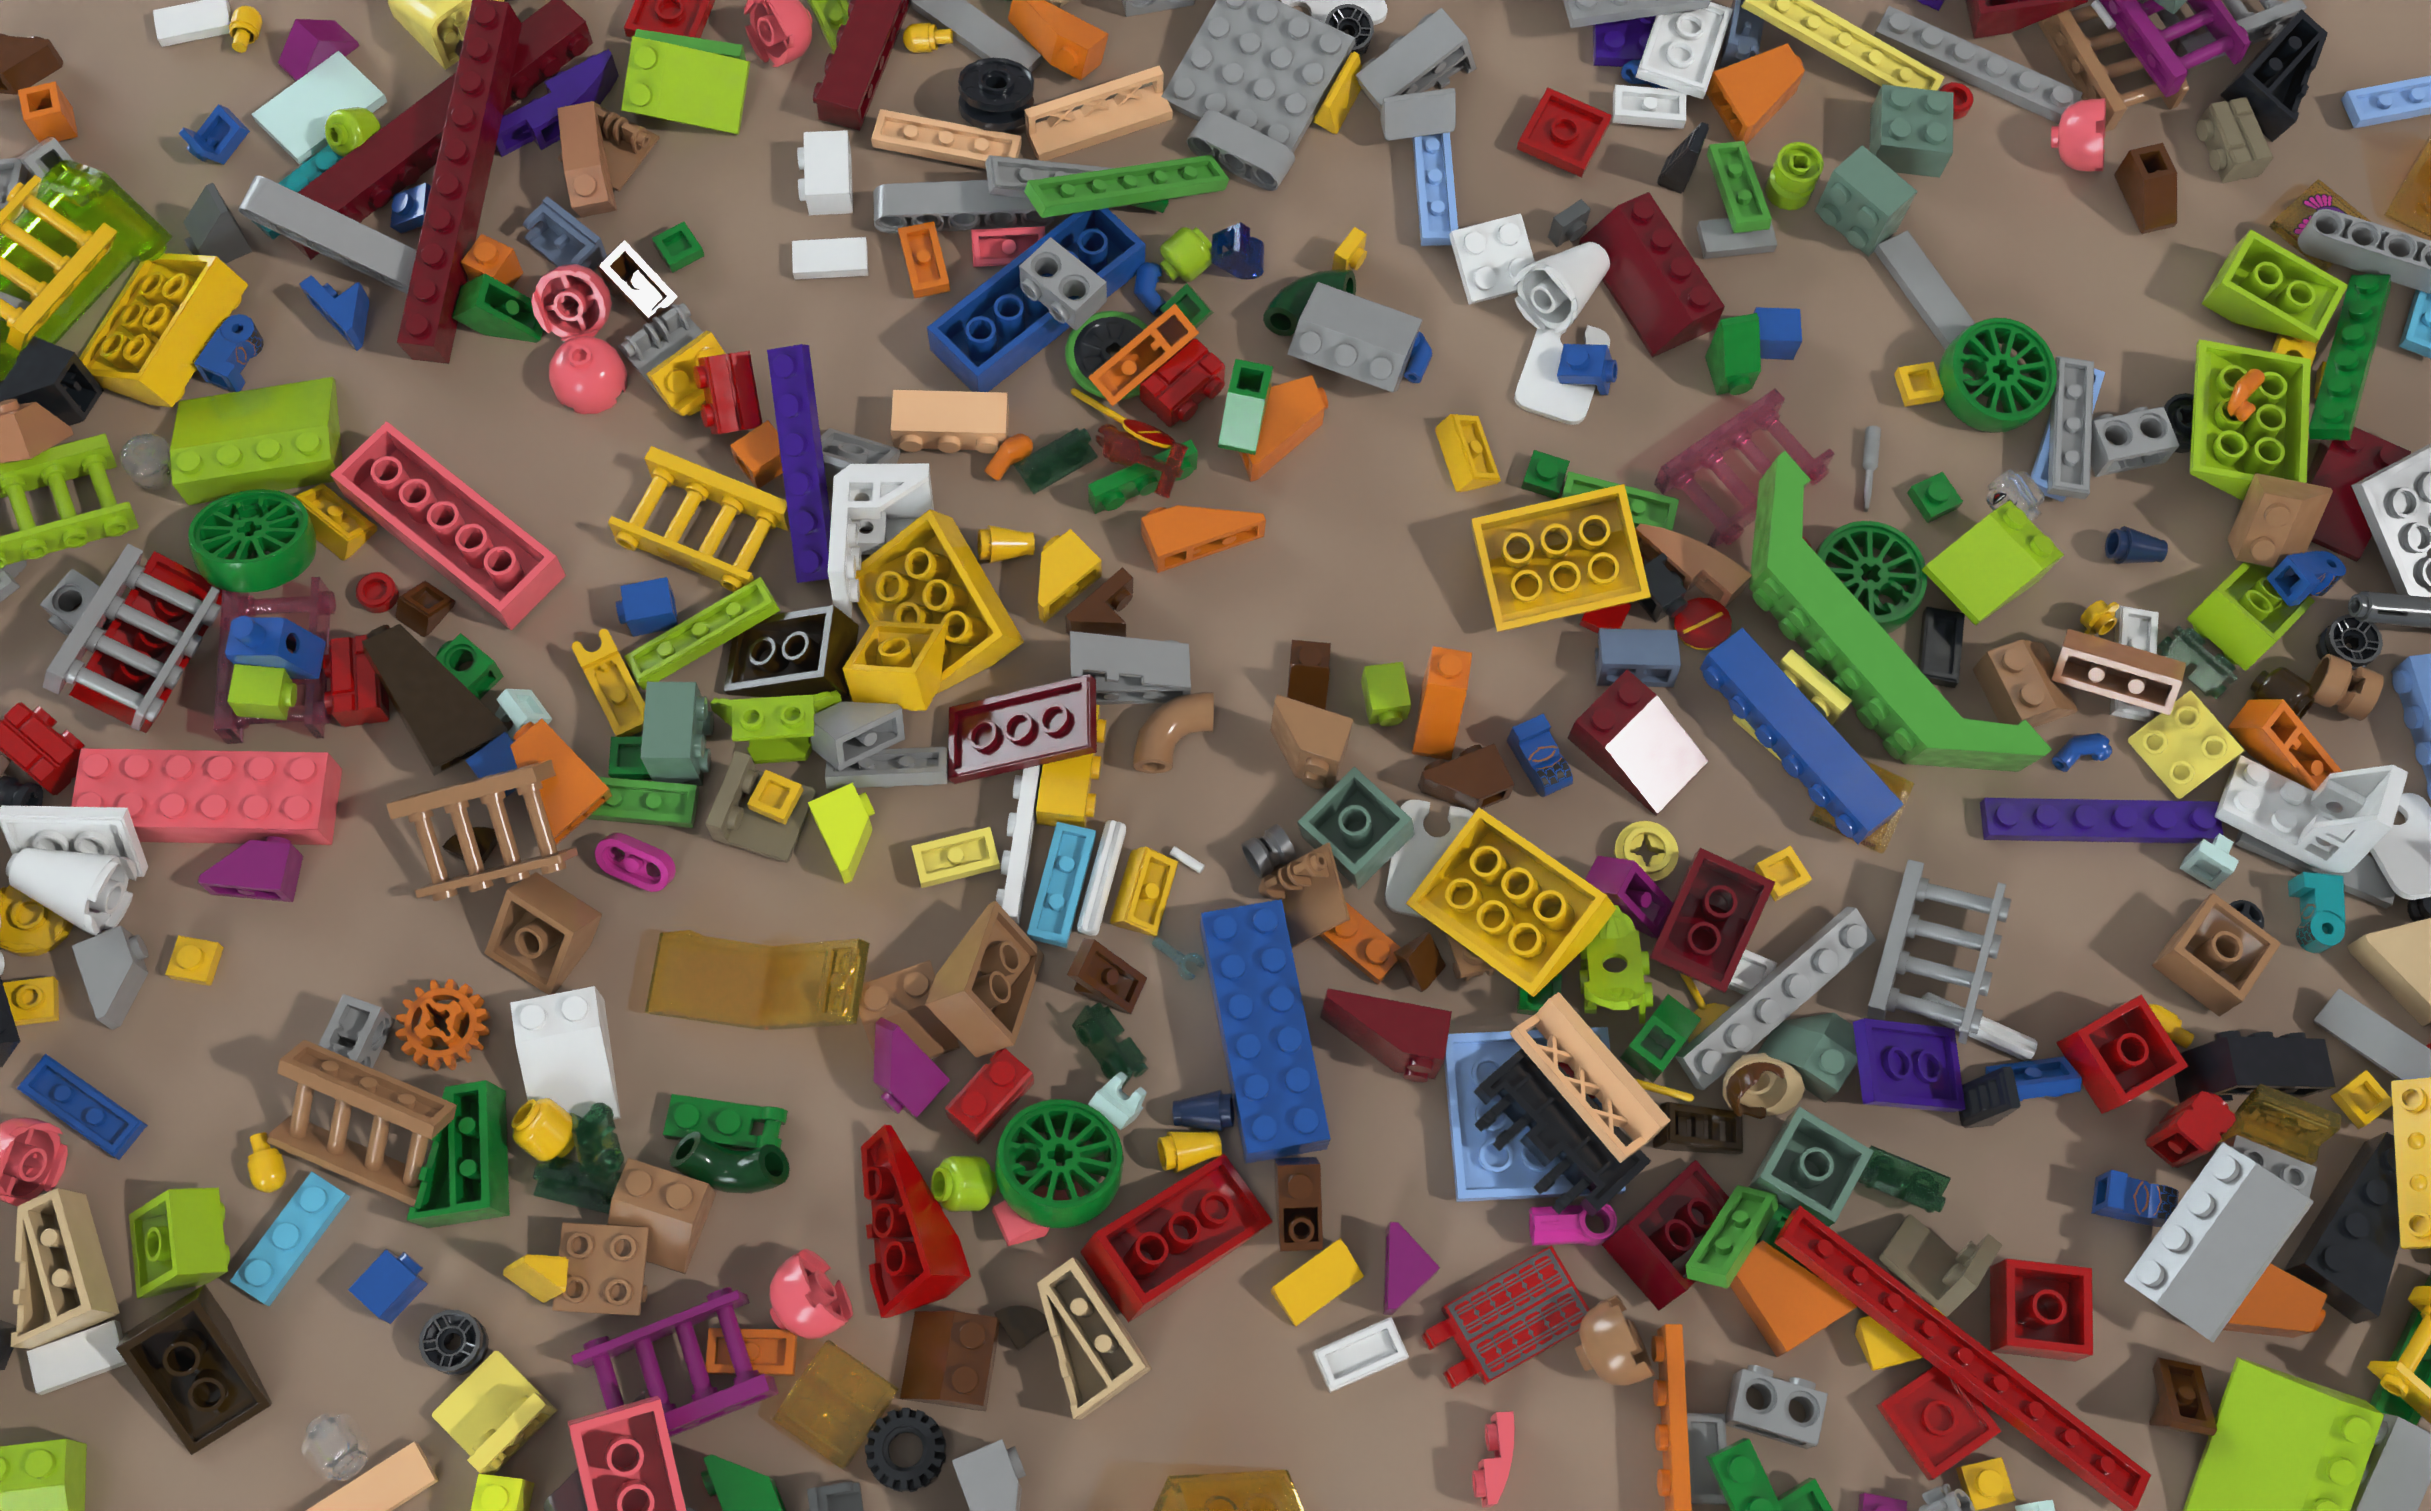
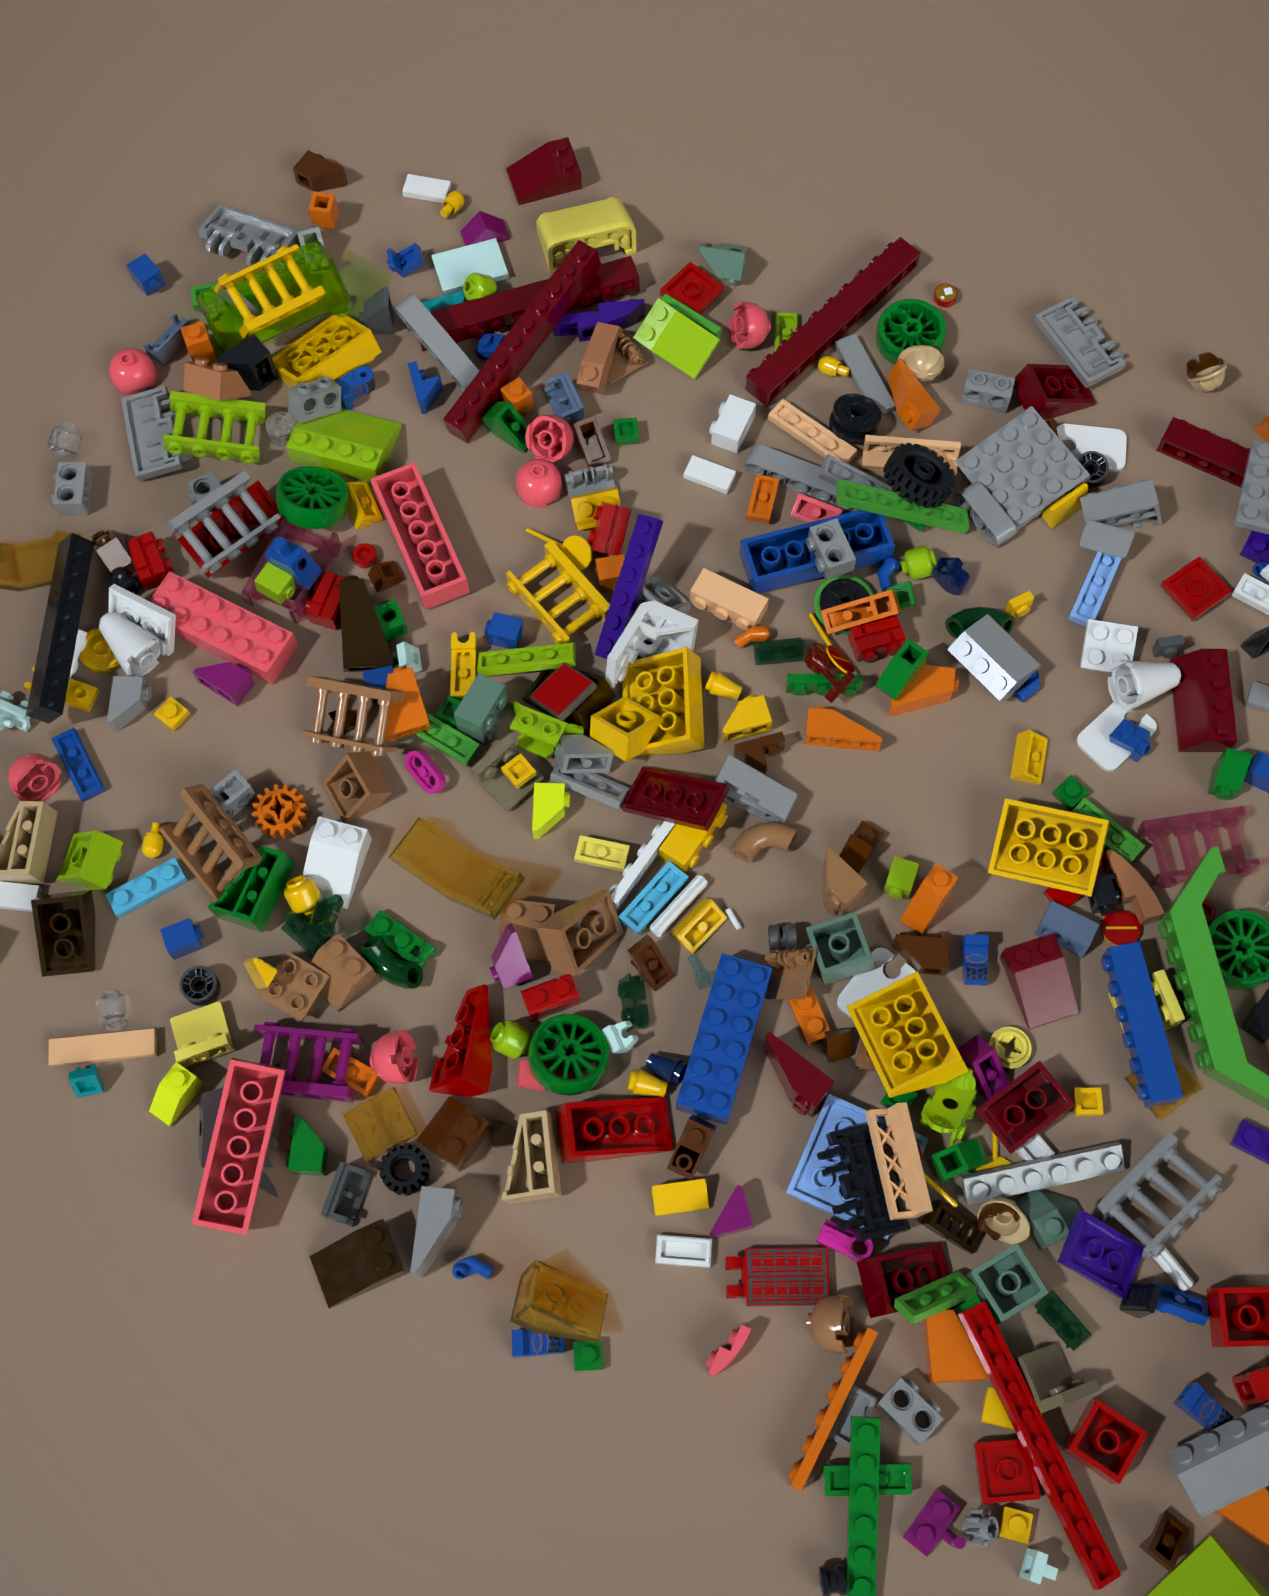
camera: 35 degrees right, 0 degrees up
(180, 395) = (314, 399): none -> light grey brick
(689, 441) = (574, 547): none -> yellow piece
(783, 653) = (563, 691): none -> red tile
(1128, 133) = (919, 475): none -> black wheel

